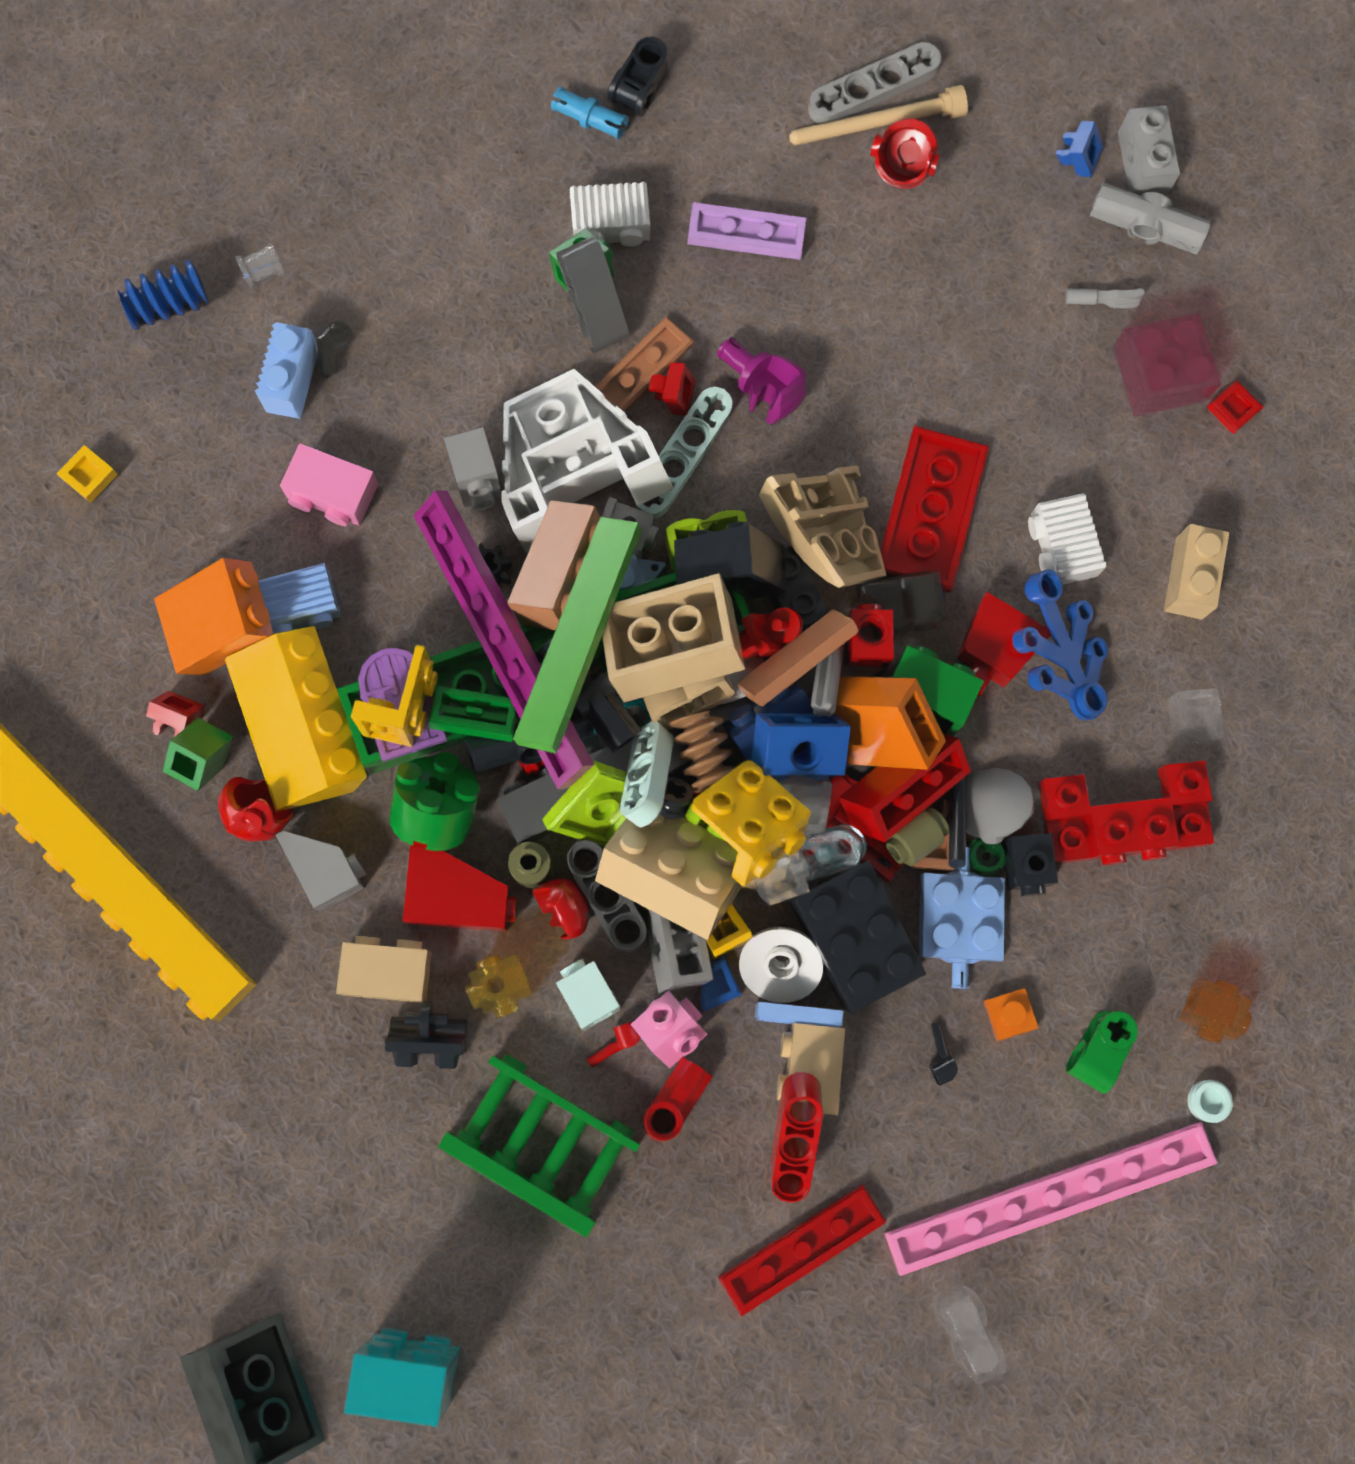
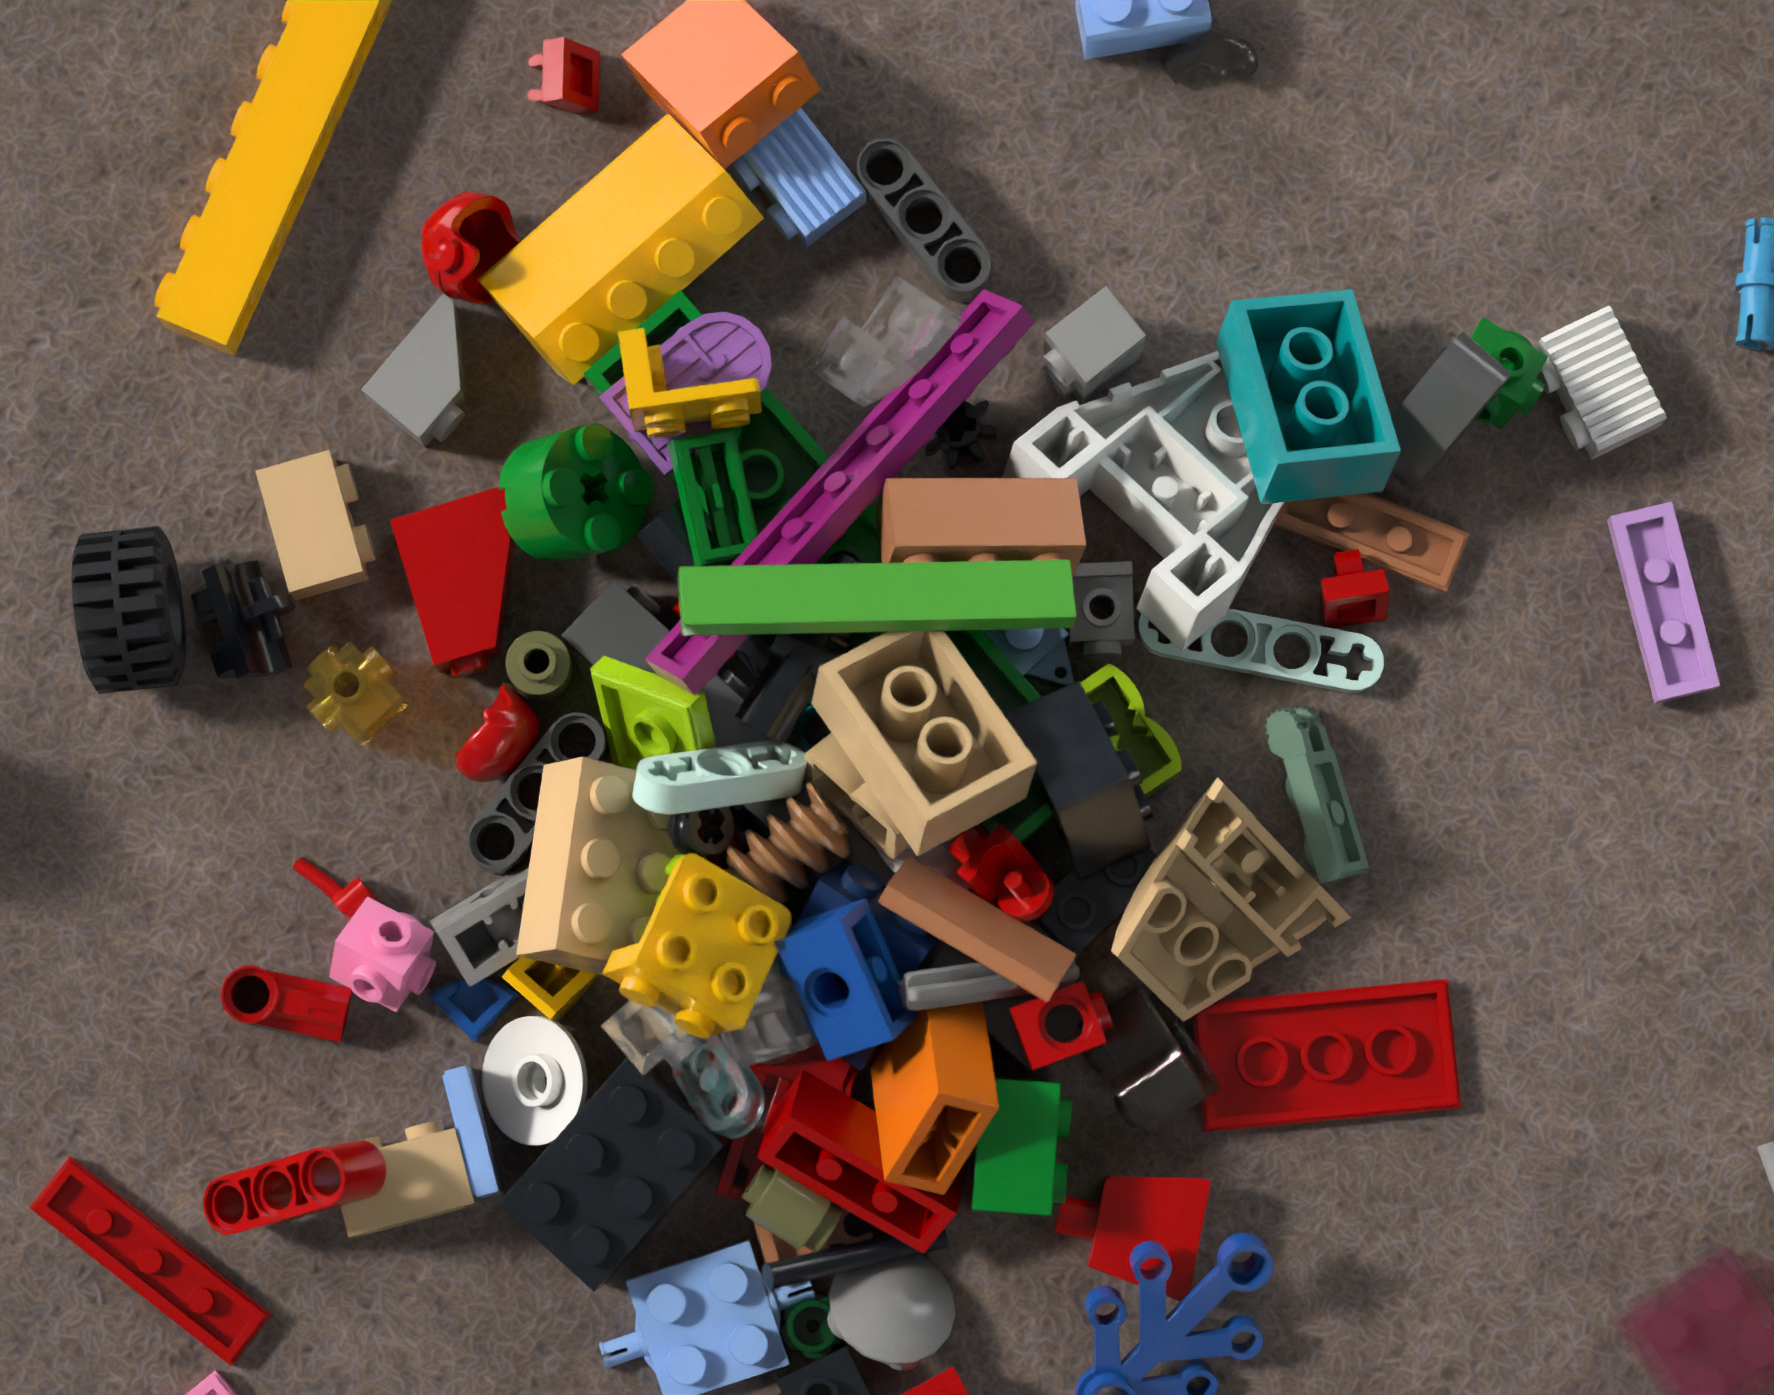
camera: 80 degrees right, 5 degrees up
(197, 753) = (518, 135): green brick -> none
(328, 485) = (990, 146): bright pink brick -> none
(370, 524) = (918, 191): none -> dark grey beam
(390, 1107) = (128, 609): none -> black tyre
(422, 584) = (889, 348): none -> clear slope
(502, 1167) = (109, 797): green fence -> none
(554, 361) = (1307, 396): none -> teal brick
(587, 994) = (384, 818): light aqua brick -> none
(766, 379) = (1427, 724): magenta piece -> none
(780, 452) = (1317, 793): none -> sand green hinge
(945, 1068) = (477, 1374): black hand -> none
(1067, 538) = (1352, 1278): white brick -> none

